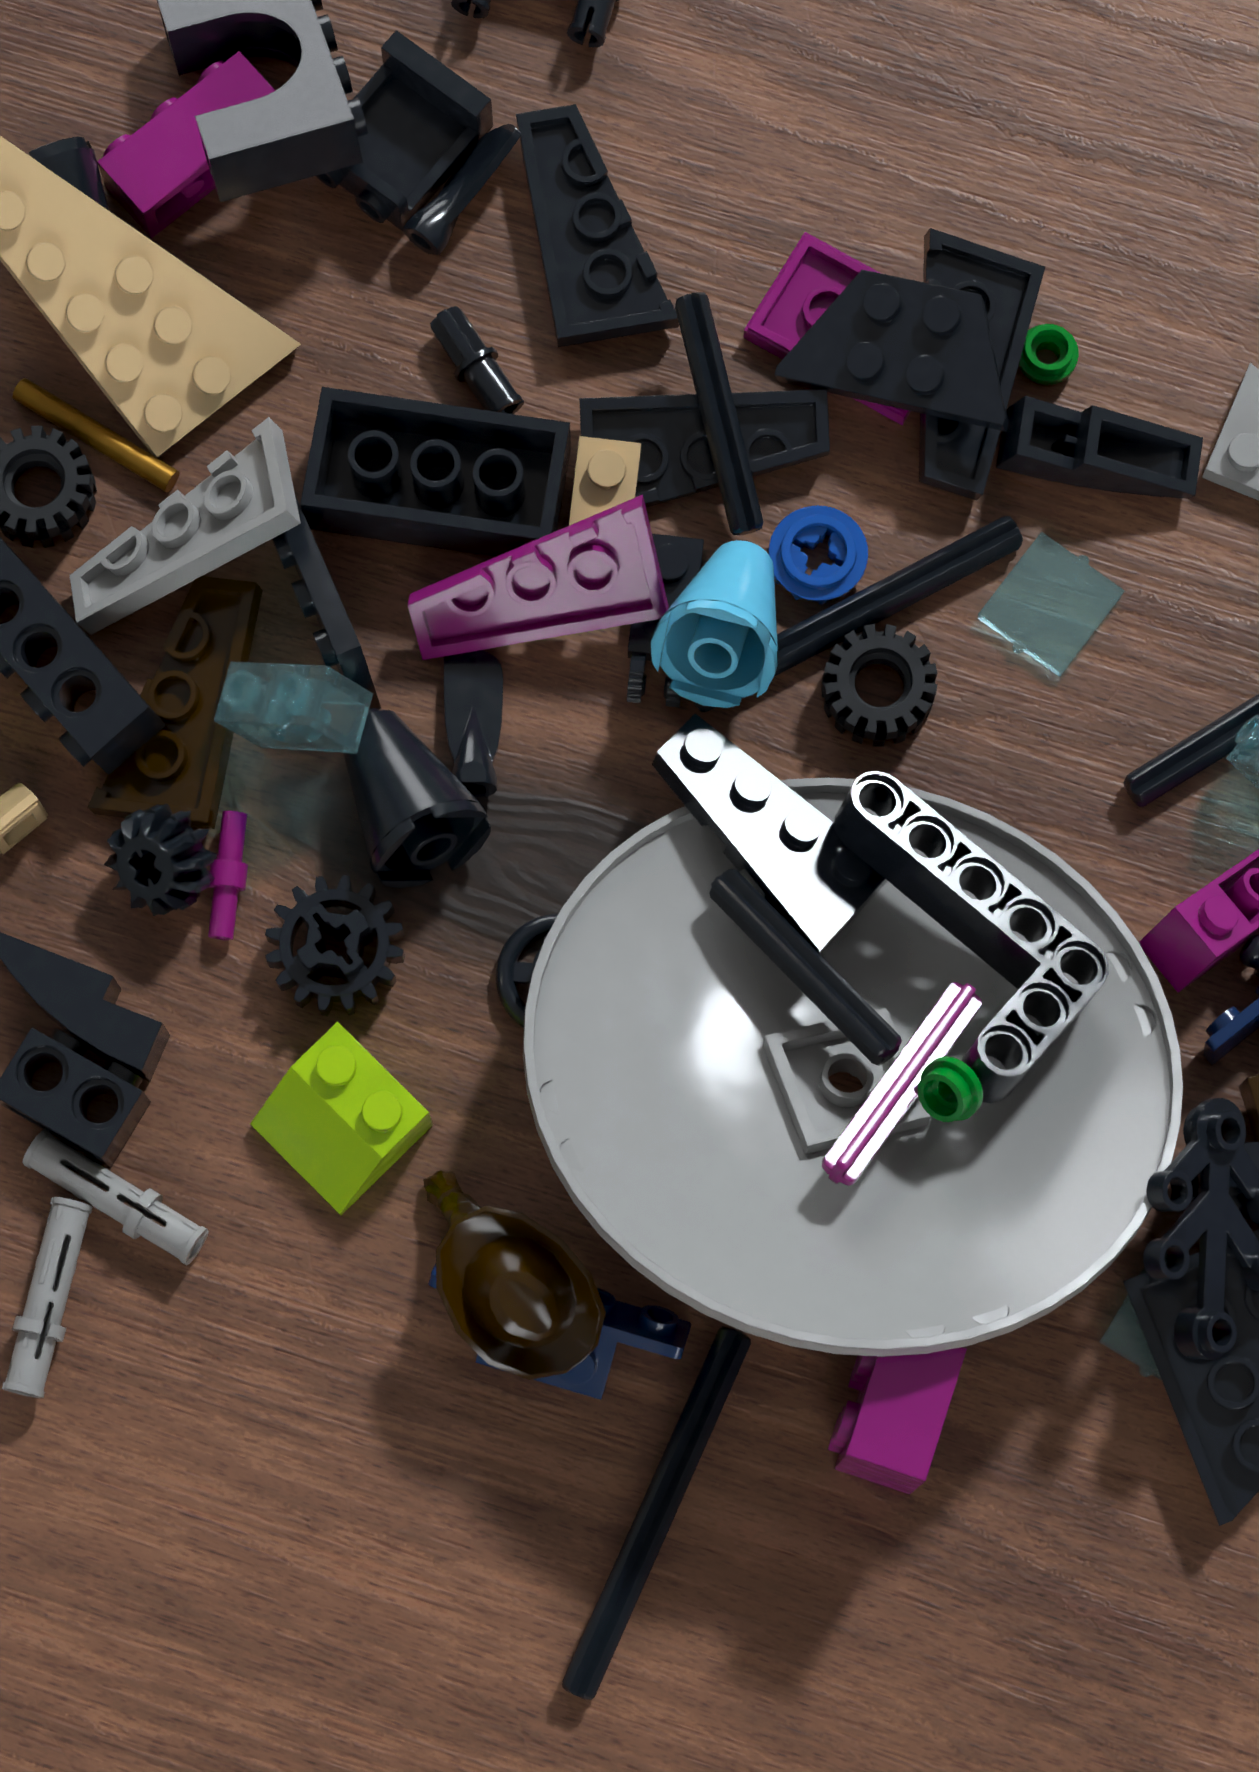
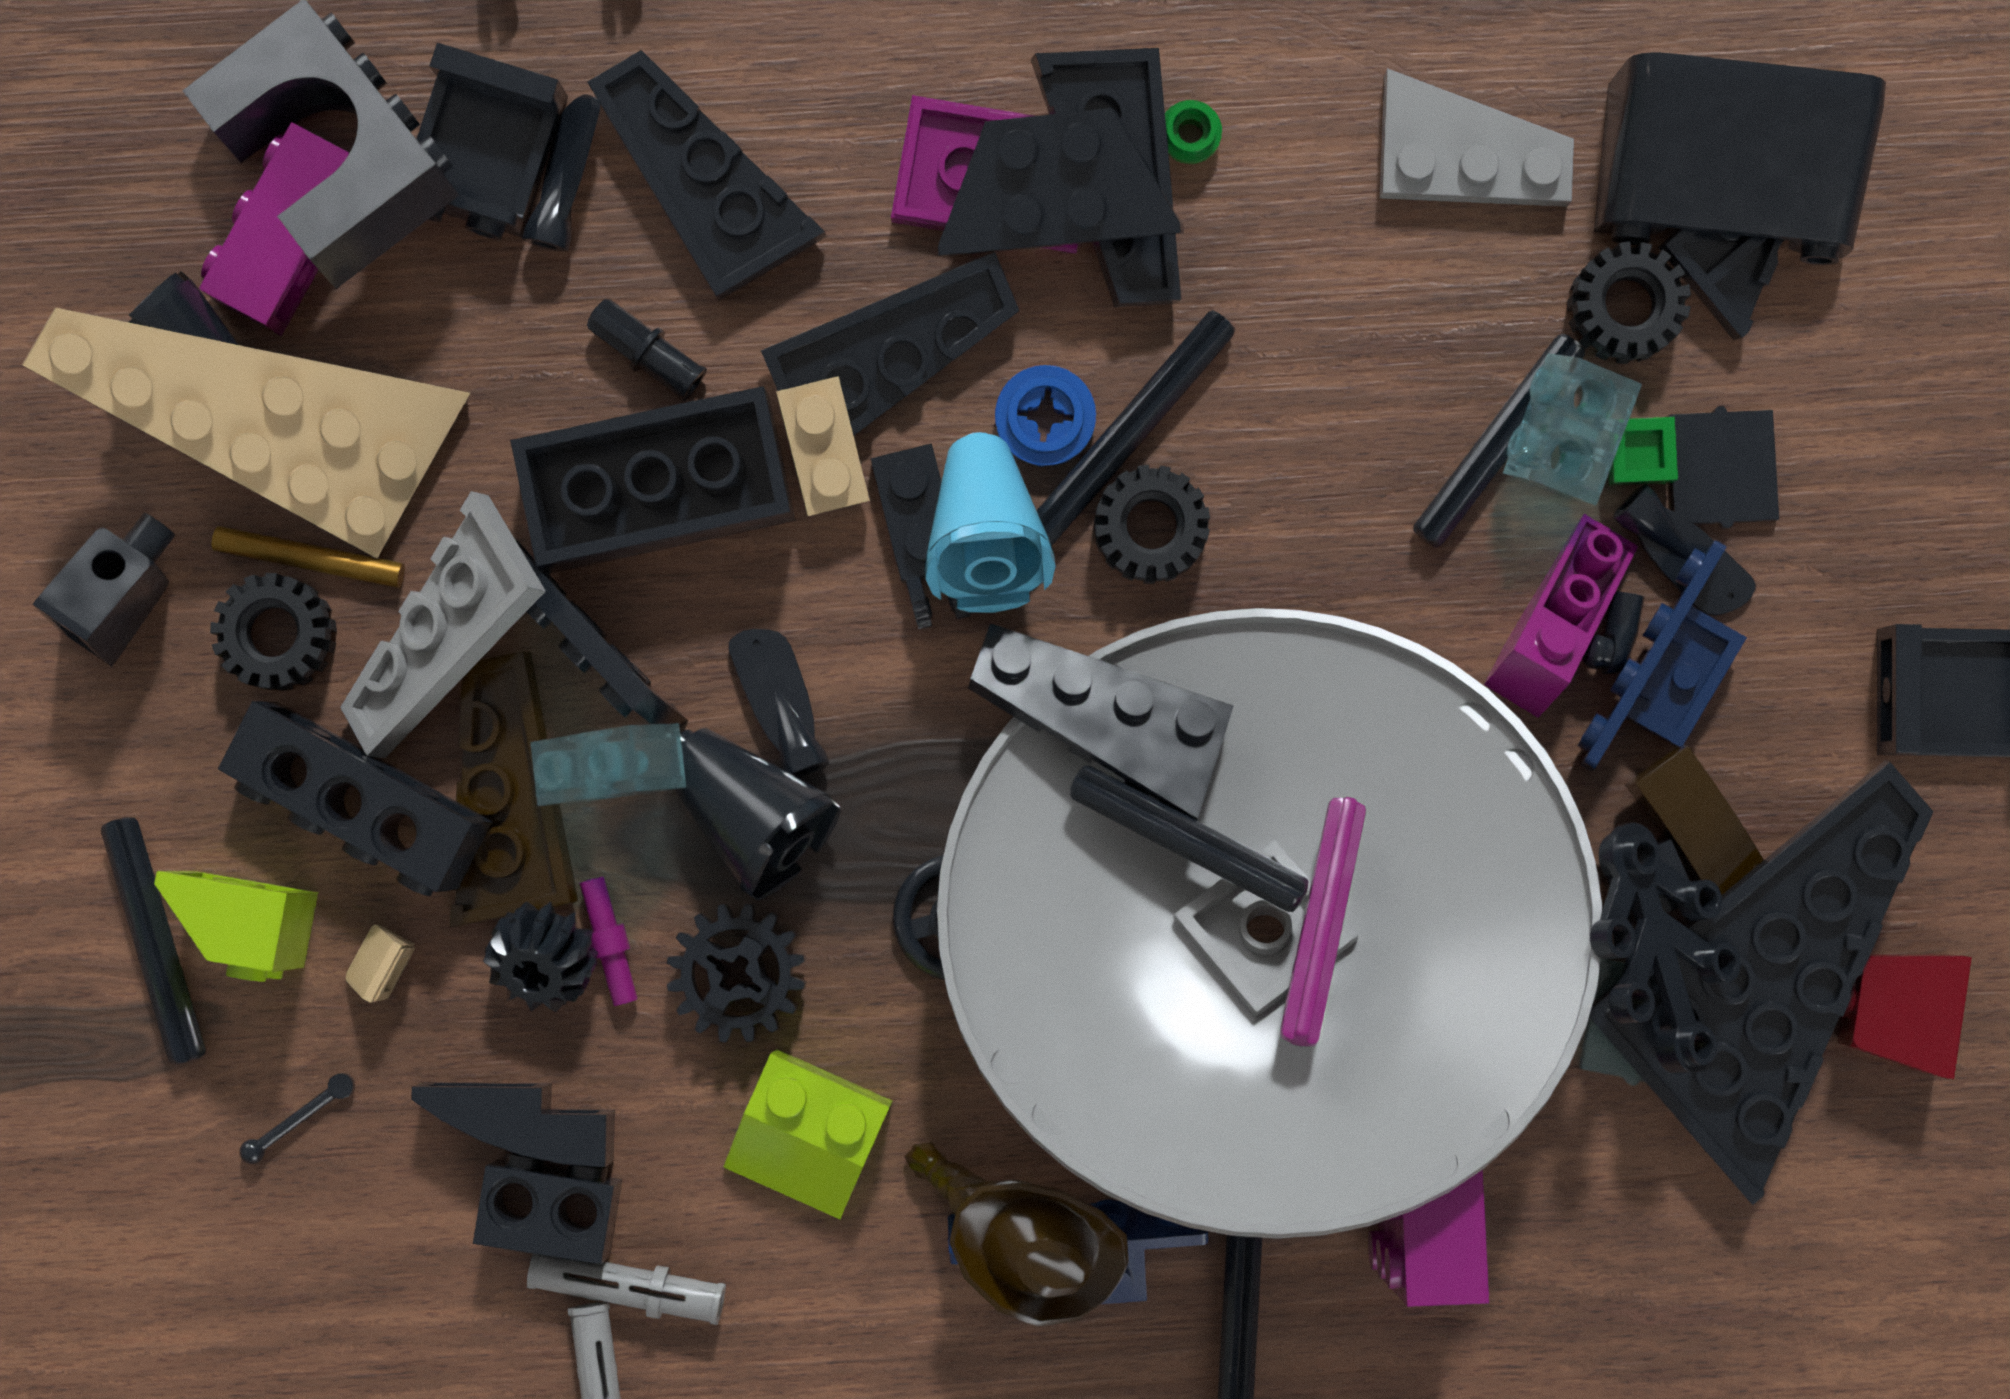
camera: 20 degrees left, 10 degrees up
(556, 586) = (811, 550): wing -> none
(719, 413) = (901, 316): black axle -> none
(949, 1090) = (1372, 916): green plate -> none
(980, 924) = (1343, 738): black beam -> none
(1050, 604) = (1282, 379): clear light blue piece -> none
(1099, 450) = (1276, 211): black slope -> none

